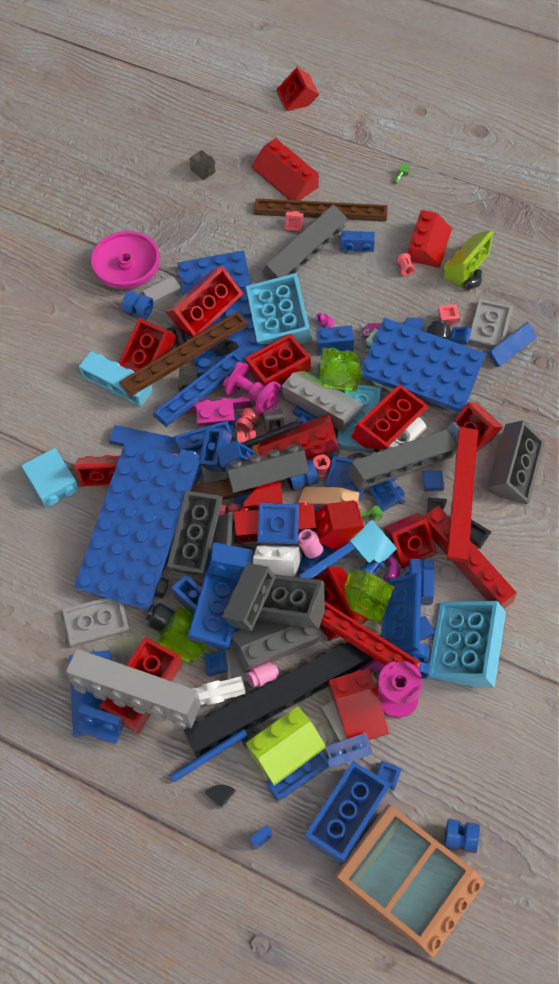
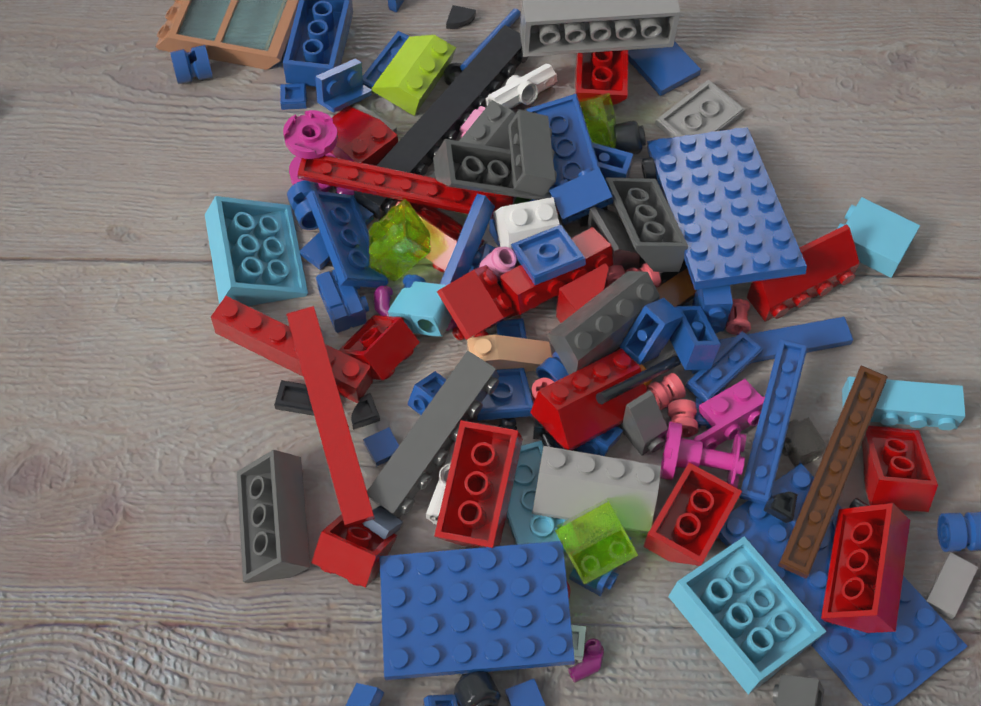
camera: 150 degrees right, 0 degrees up
(324, 320) = (665, 644): dark pink arm -> none
(335, 337) = (633, 604): blue brick -> none
(375, 512) = (443, 368): bright green hand -> none

